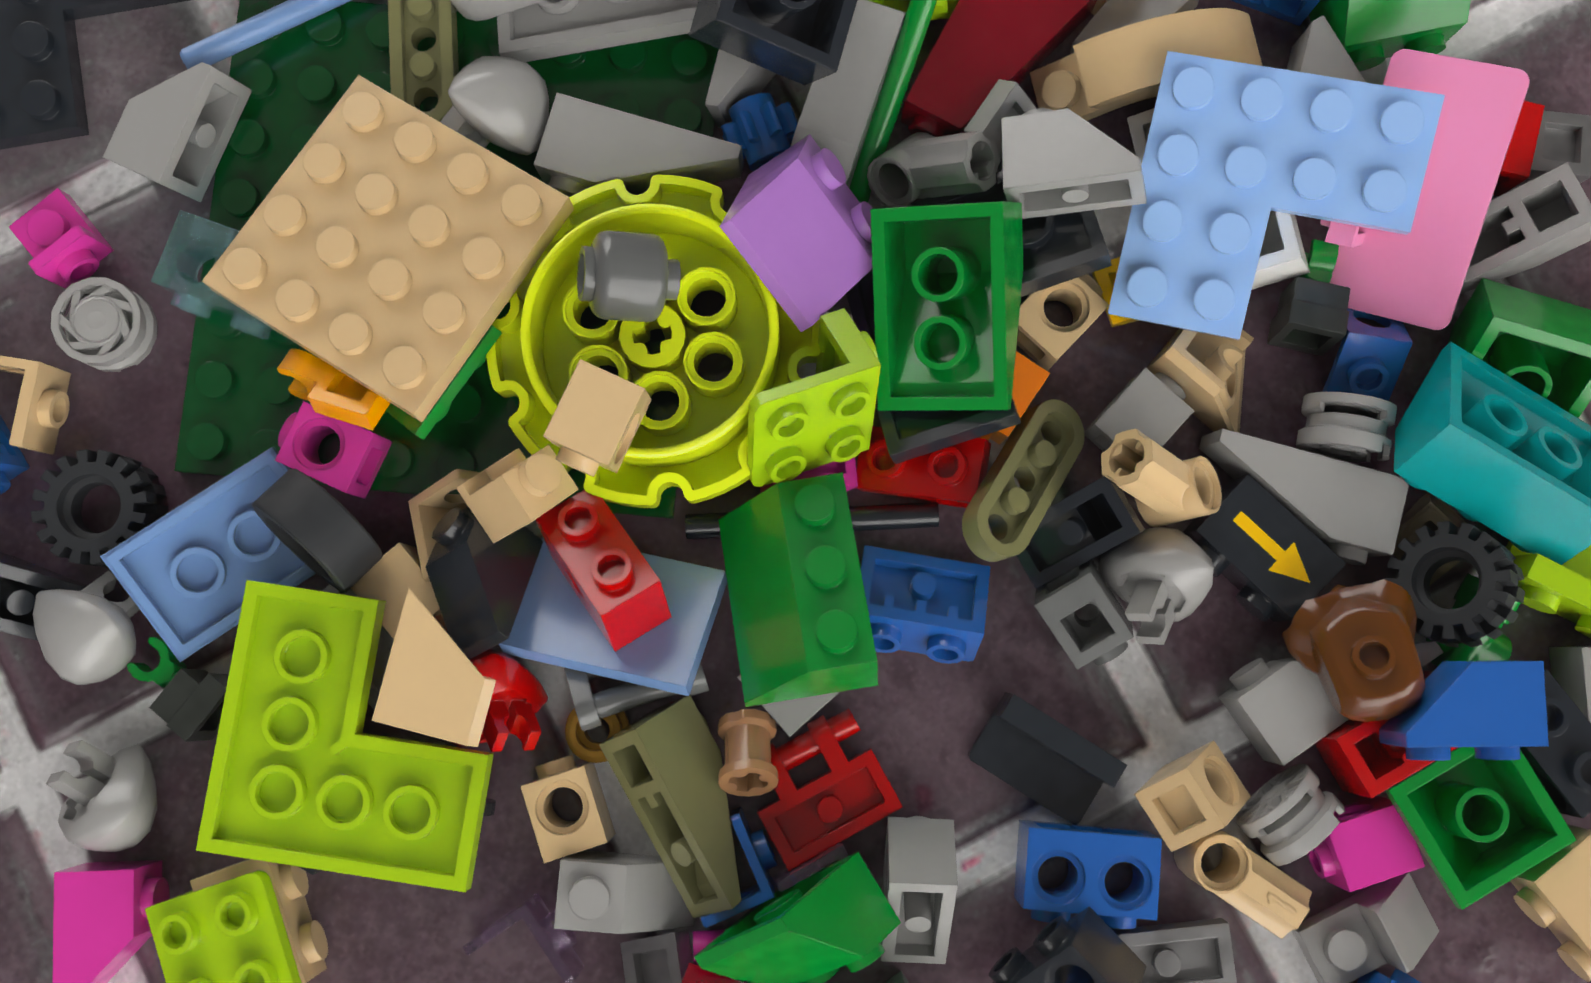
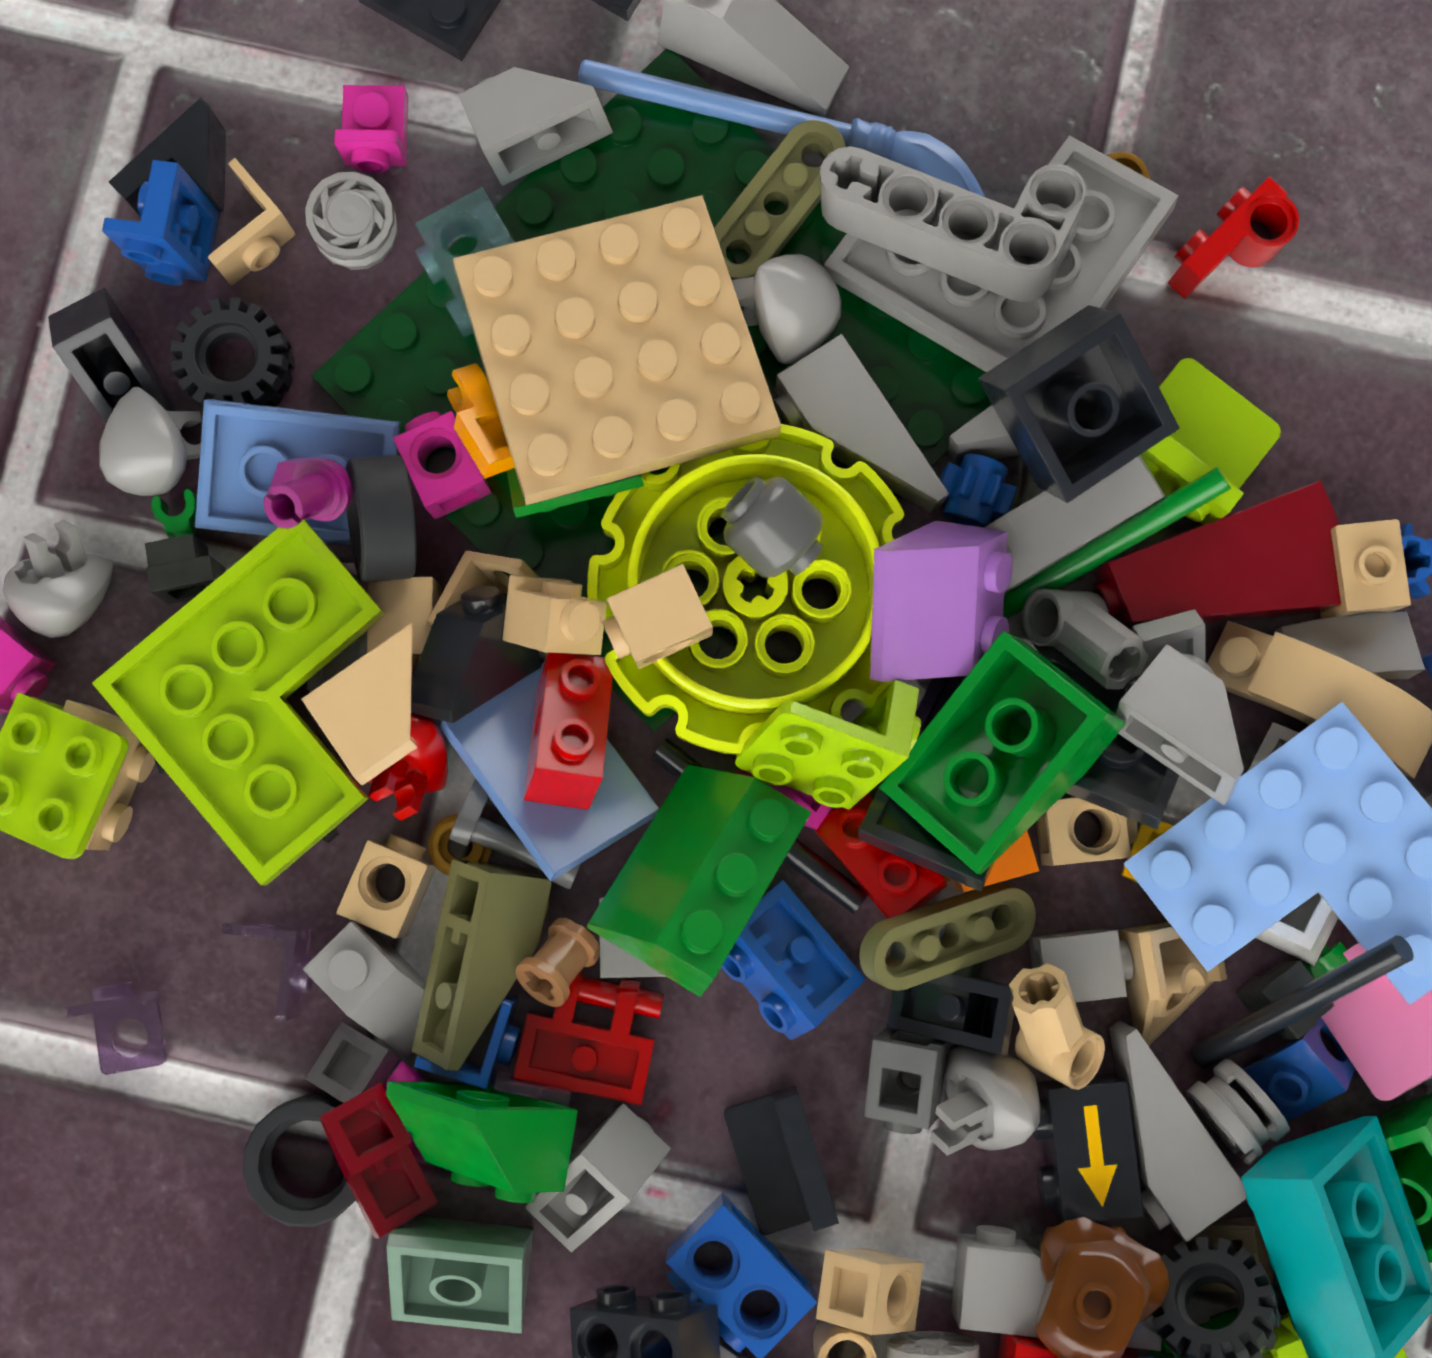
camera: 35 degrees right, 0 degrees up
(240, 554) = (307, 490): none -> magenta arm
(1328, 299) = (1303, 1001): none -> black bar

